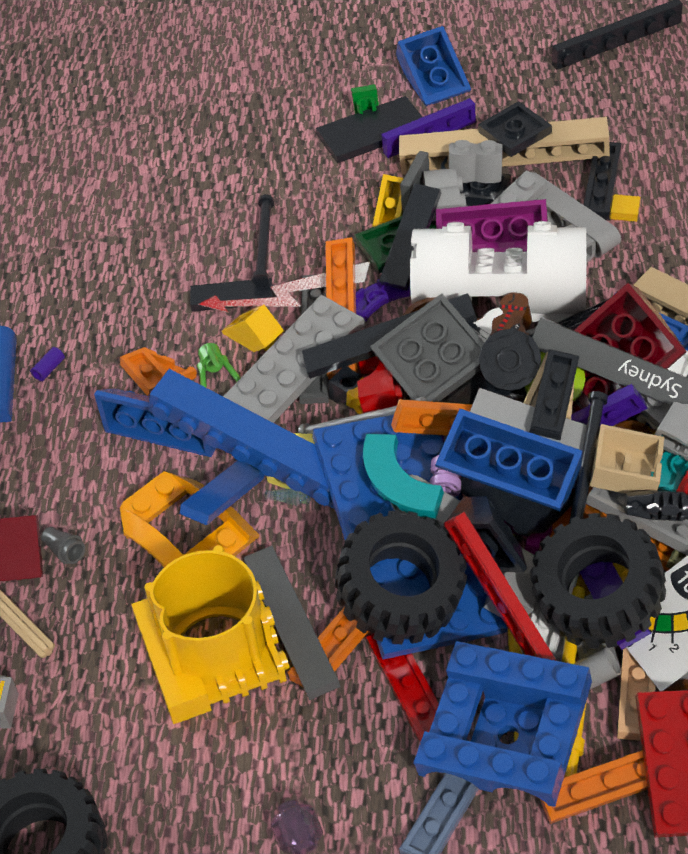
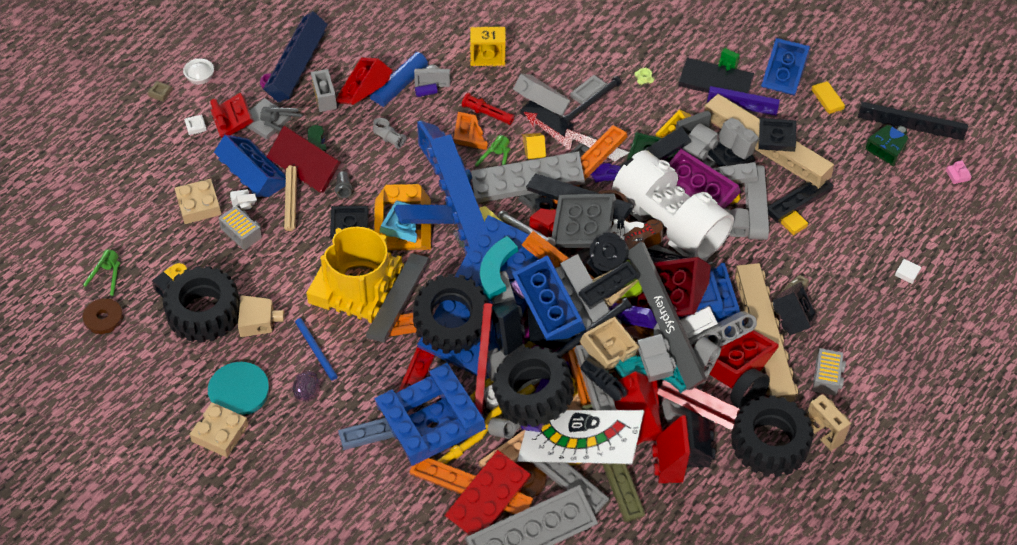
camera: 35 degrees right, 5 degrees up
(39, 340) = (431, 75): none -> light grey tile
(55, 442) = (388, 133): none -> light grey connector
(77, 261) = (487, 46): none -> yellow brick
(117, 583) = (348, 216): none -> black tile
(128, 794) = (257, 316): none -> tan torso
(137, 334) = (481, 106): none -> red pin
(192, 535) = (393, 228): none -> medium azure wing
(200, 270) = (541, 94): none -> light grey slope
(244, 233) = (587, 89): none -> light grey tile
(251, 771) = (316, 349): none -> blue bar
(291, 176) = (644, 75): none -> yellowish green plate
(506, 69) = (828, 97): none -> yellow tile
(624, 69) = (888, 143): none -> dark green torso

